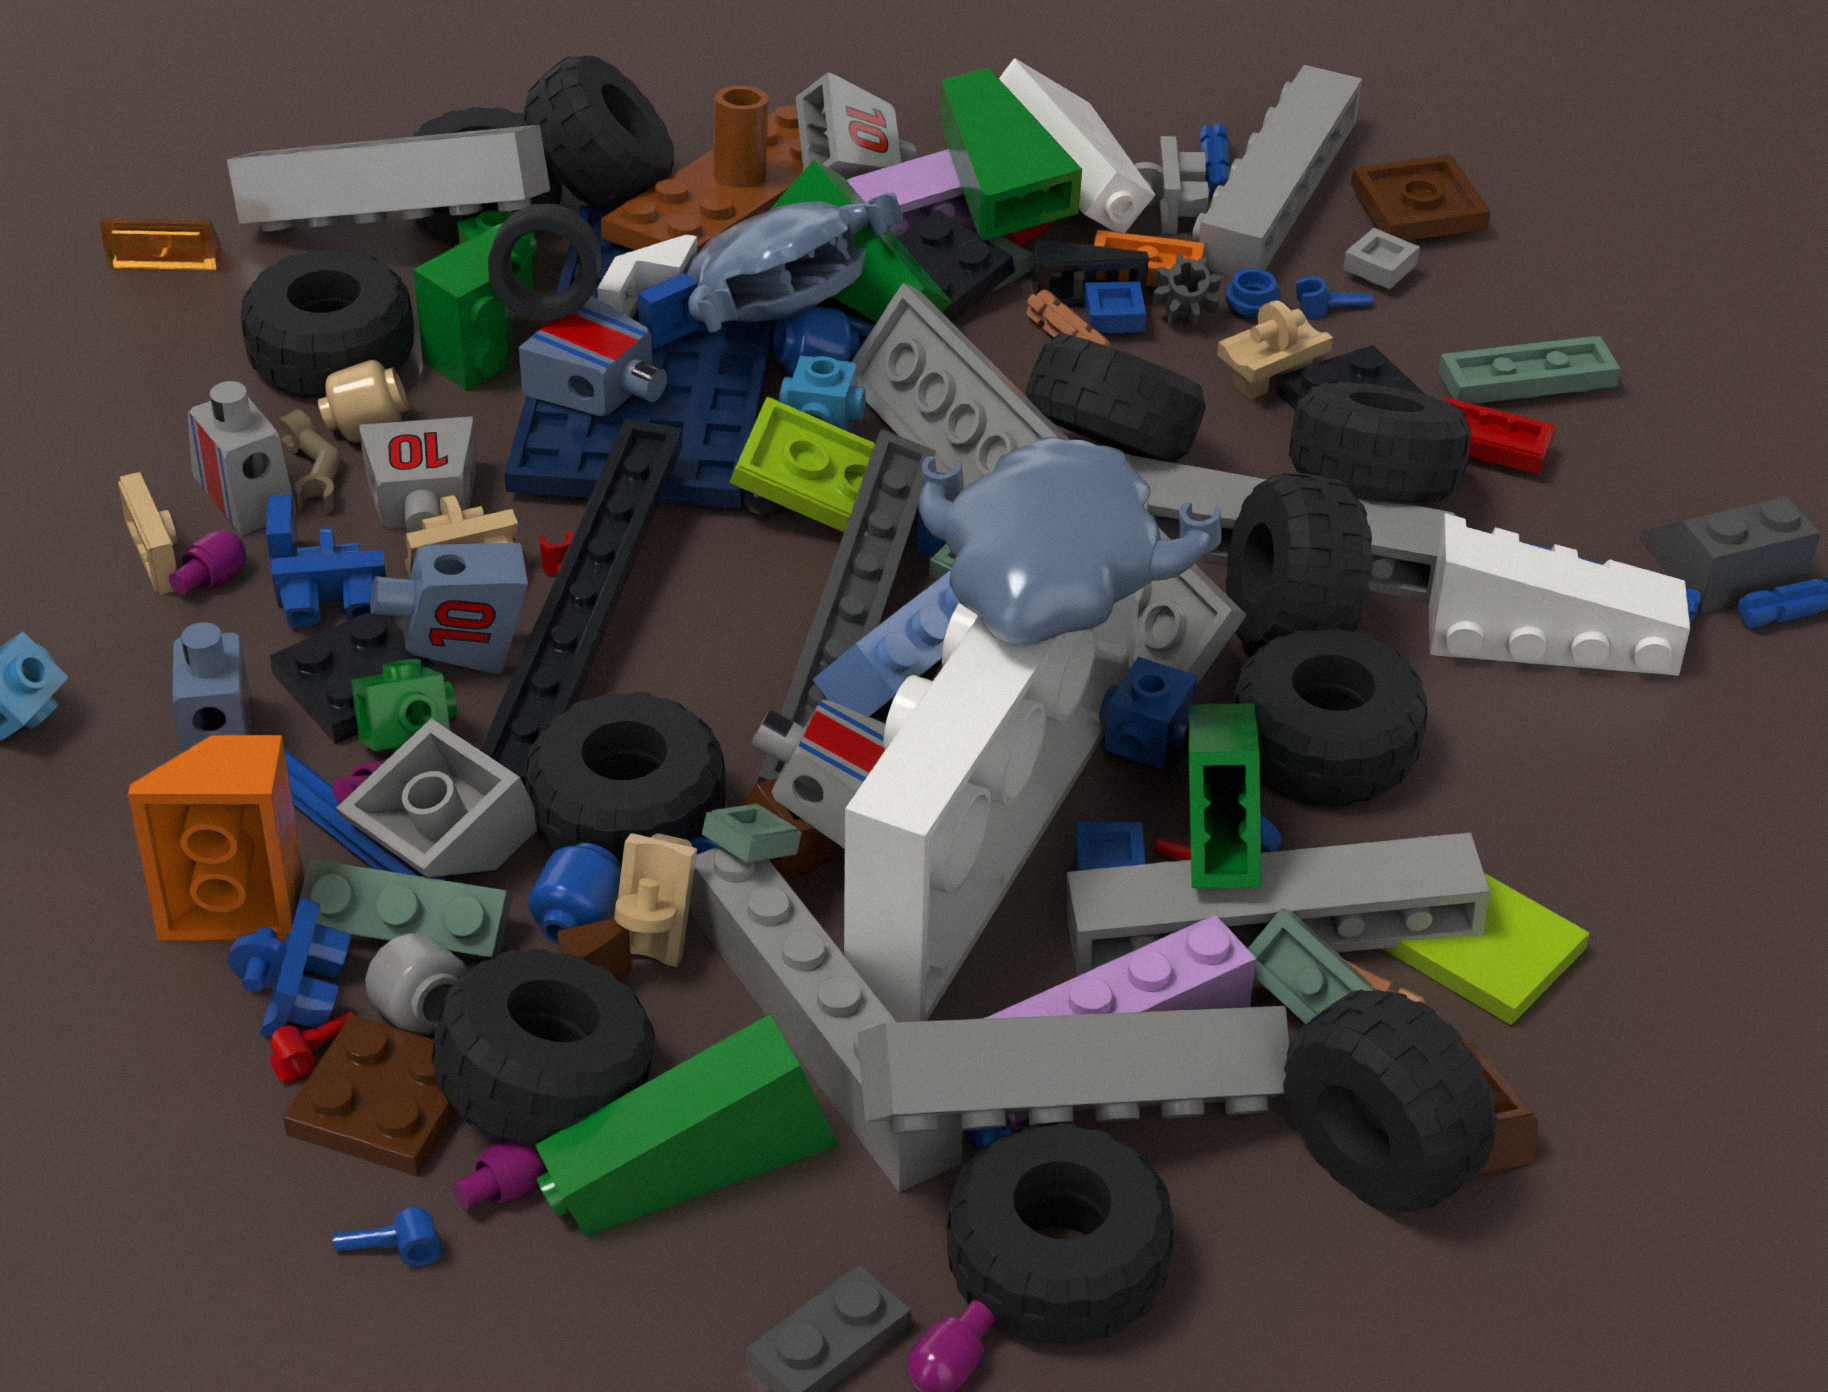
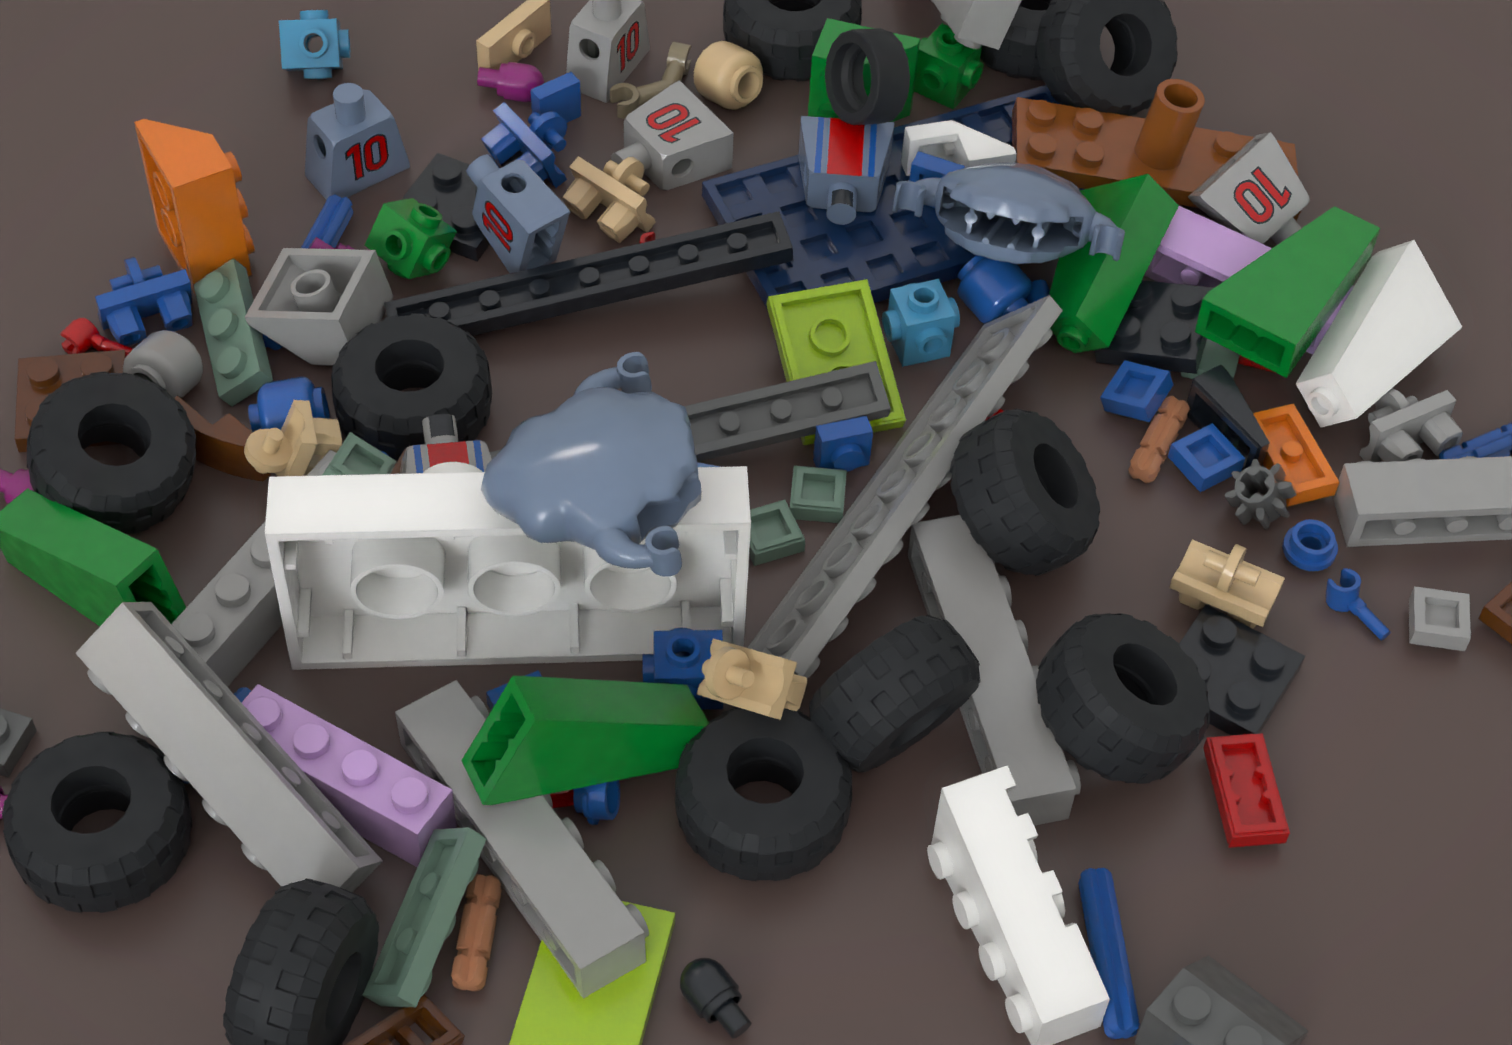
camera: 60 degrees right, 10 degrees up
(1009, 312) = (1136, 391): none -> blue plate
(1235, 641) = (751, 680): none -> tan hips
(1527, 844) = (714, 995): none -> black cylinder
(1529, 370) = (1366, 788): sand green plate -> none

